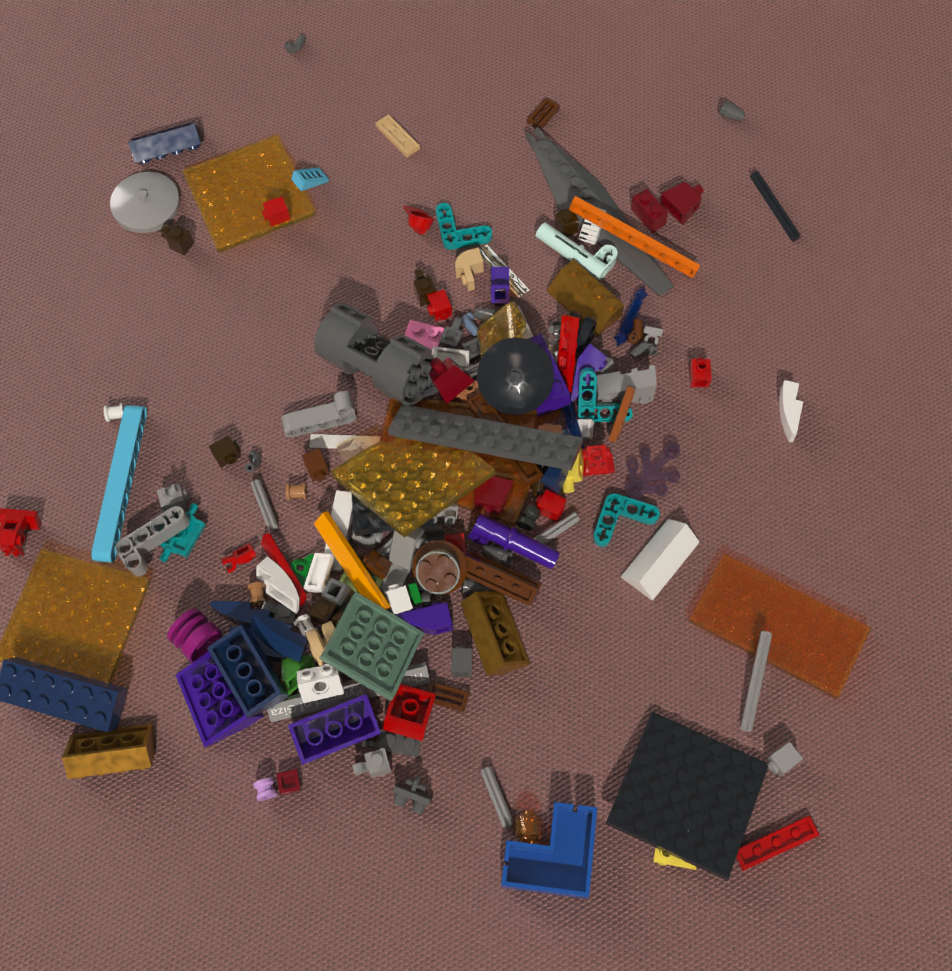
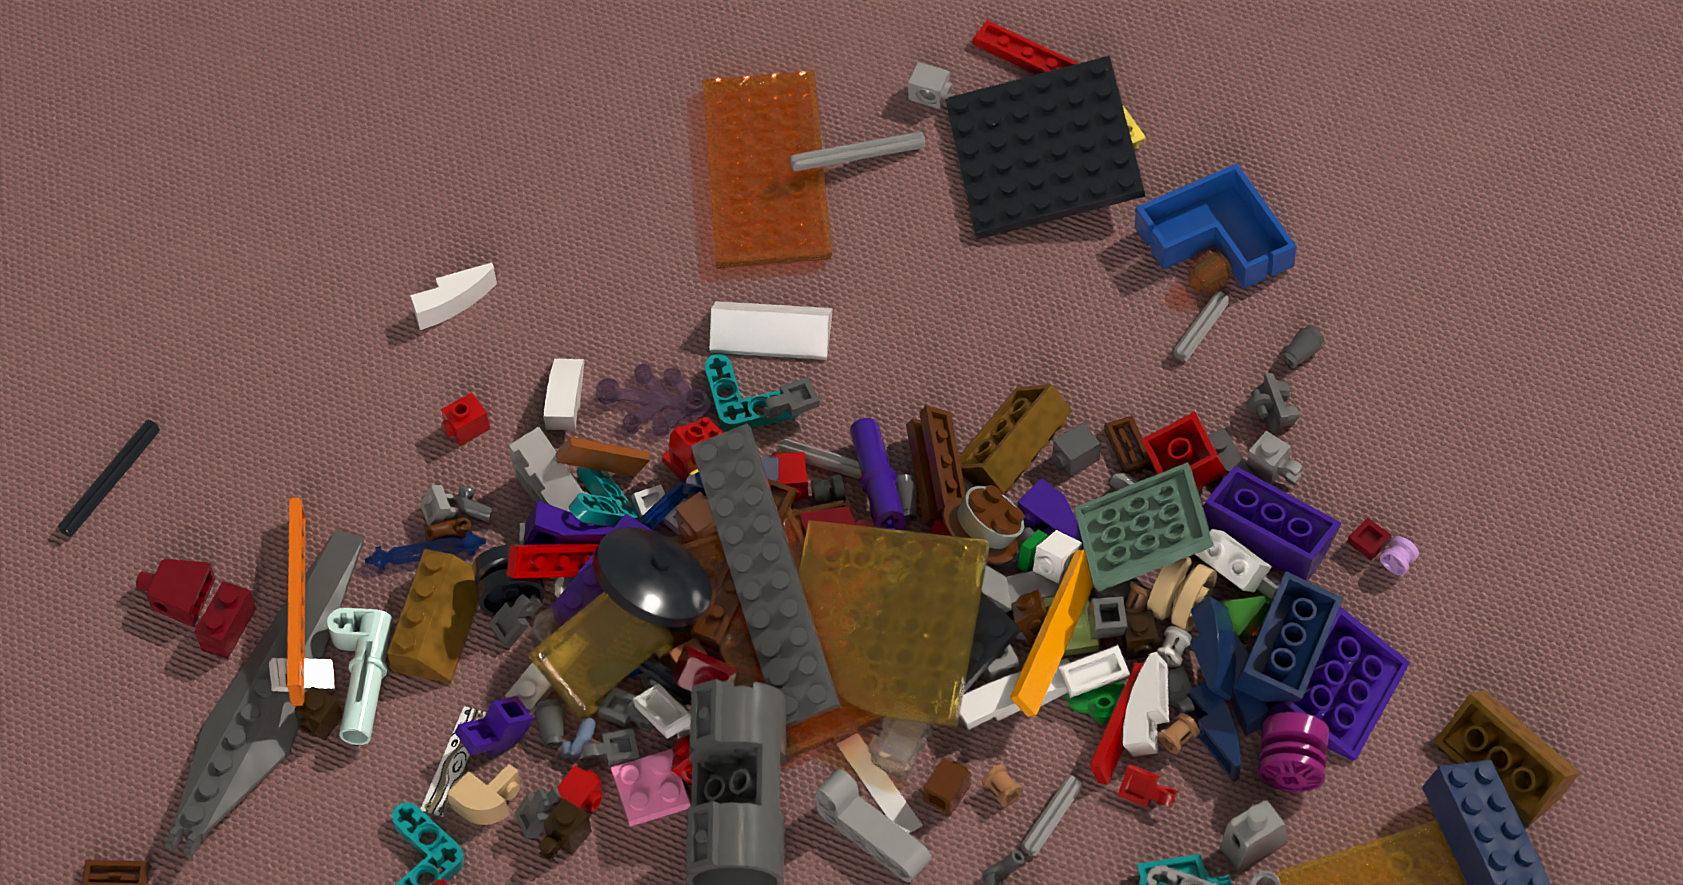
camera: 125 degrees left, 10 degrees down
(171, 584) = (1257, 832): none -> light grey torso
(438, 845) = (1304, 345): none -> dark grey cone
(442, 282) = (534, 809): none -> dark grey plate
(596, 533) = (795, 396): none -> dark grey plate
(685, 428) = (563, 394): none -> white slope

